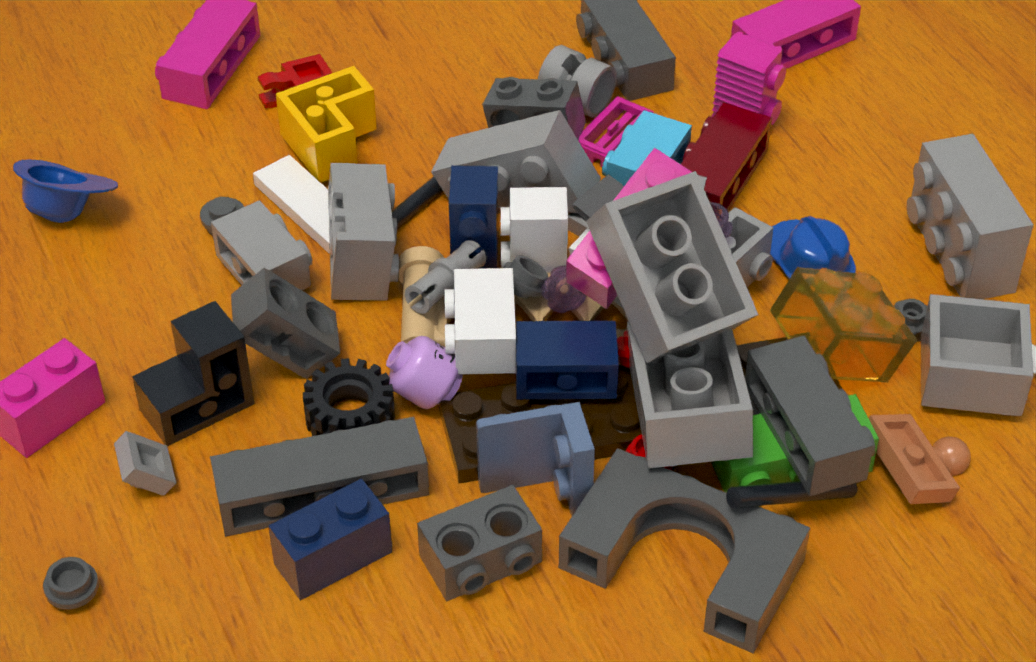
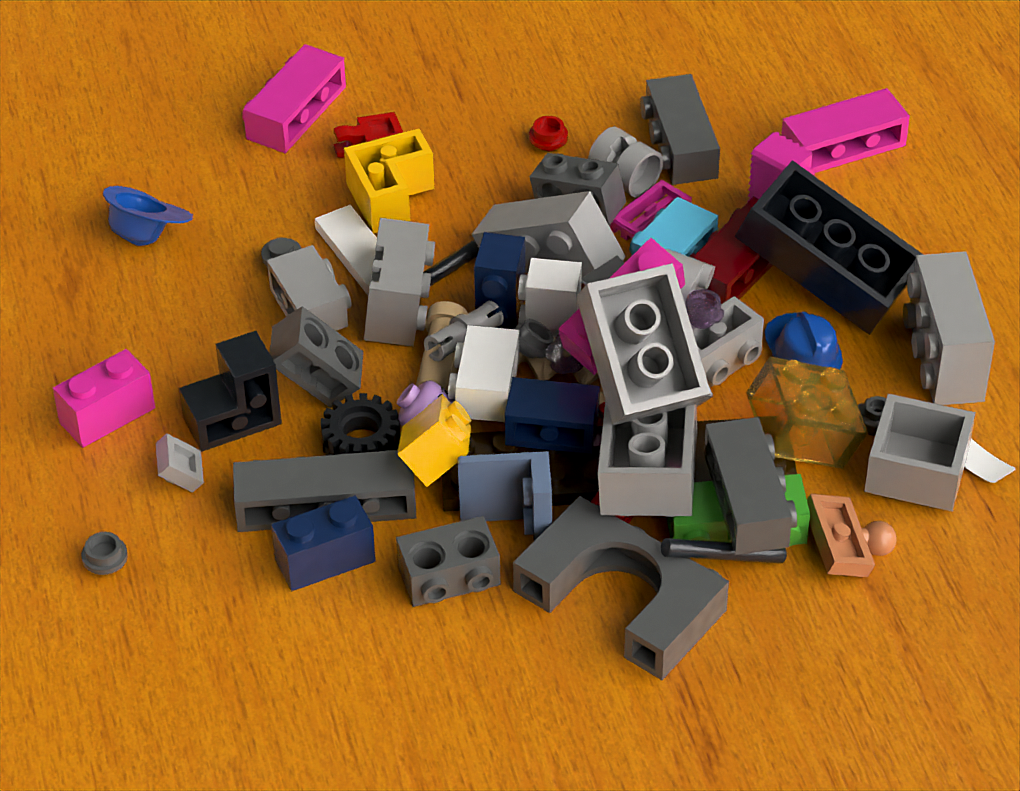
camera: 10 degrees right, 0 degrees up
(442, 402) = (435, 439): none -> yellow brick
(487, 61) = (548, 133): none -> red plate
(823, 146) = (829, 246): none -> black brick

